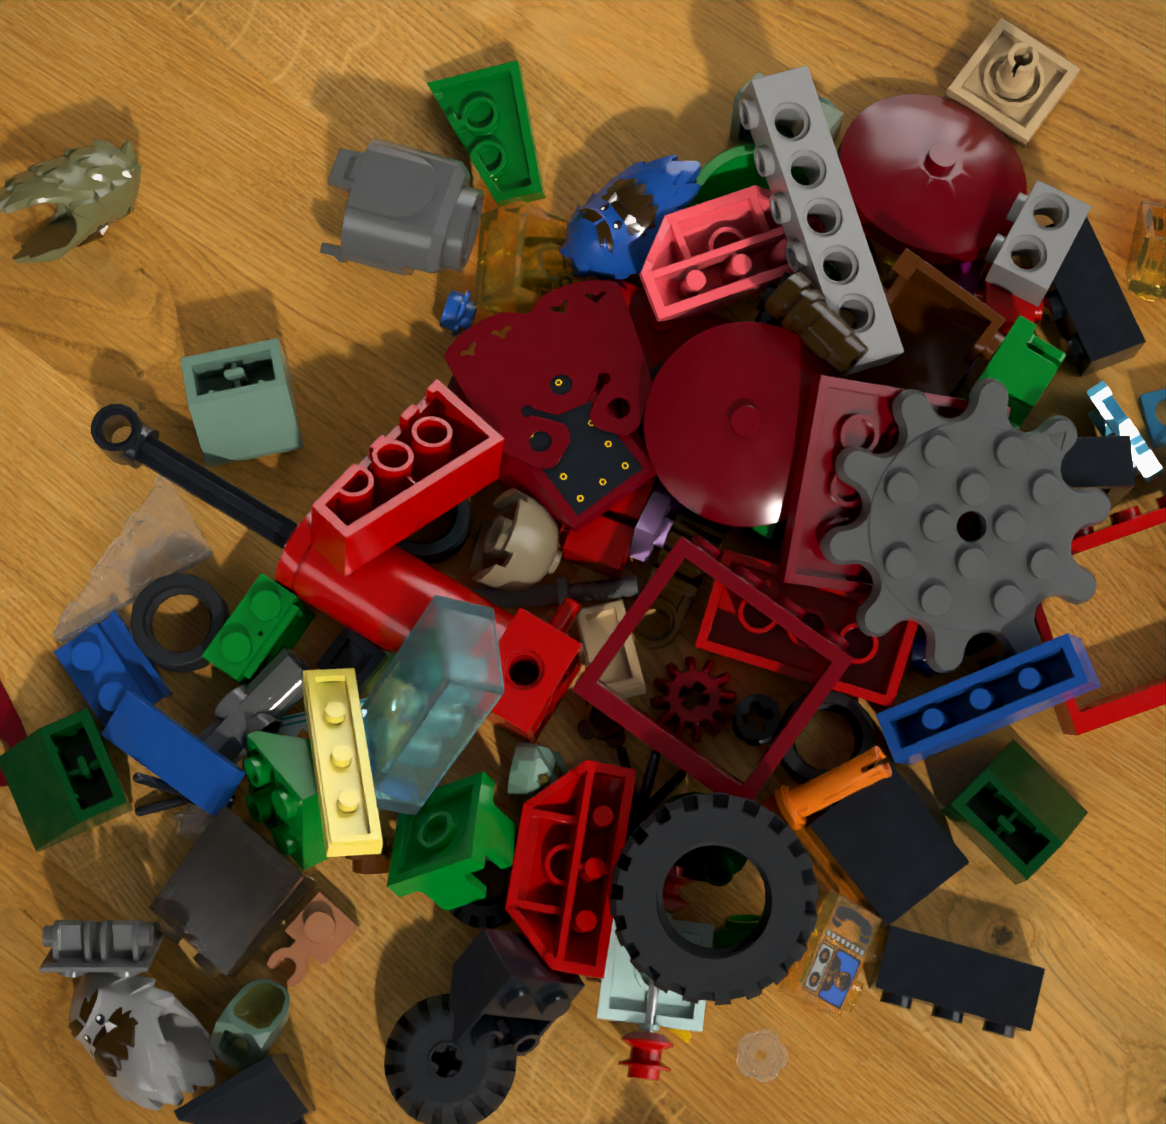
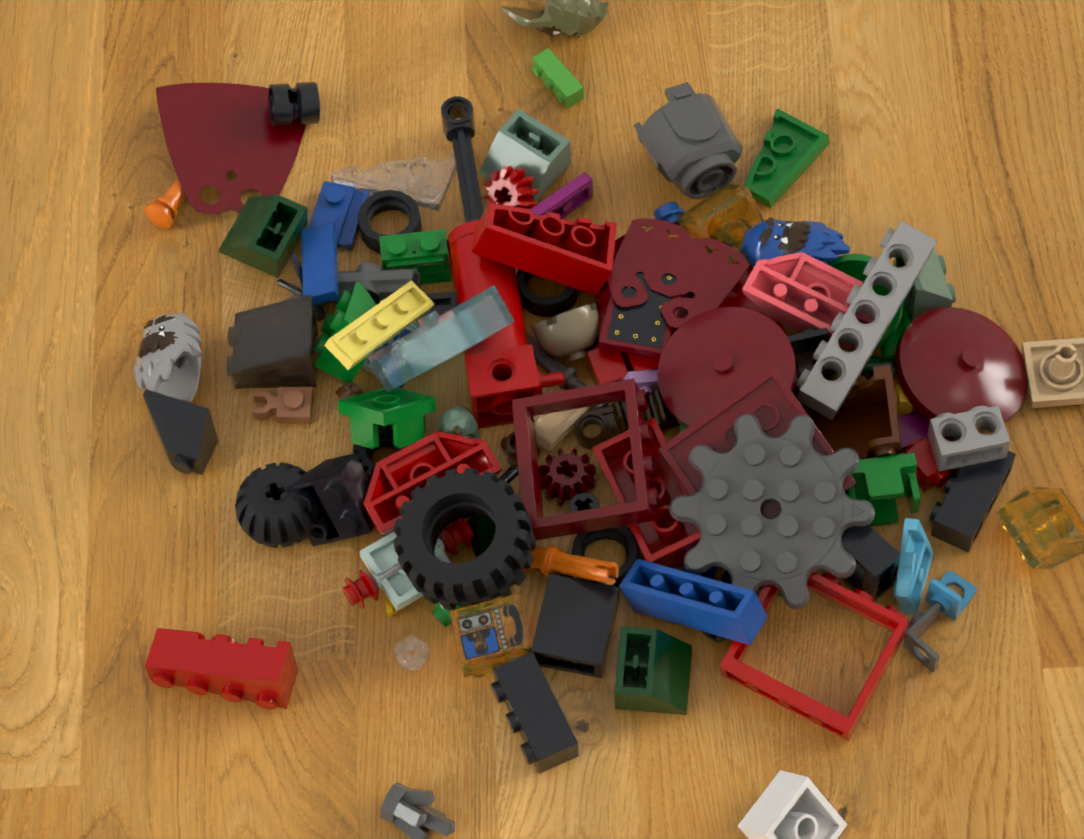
camera: 50 degrees right, 15 degrees down
(103, 946) = (202, 307): dark grey hinge -> none
(163, 278) = (557, 78): none -> bright green piece
(251, 1023) = (224, 402): sand green rock -> none
(259, 469) = (511, 188): none -> red gear
(335, 421) = (567, 198): none -> magenta tile
(816, 324) = (803, 354): dark brown axle -> none

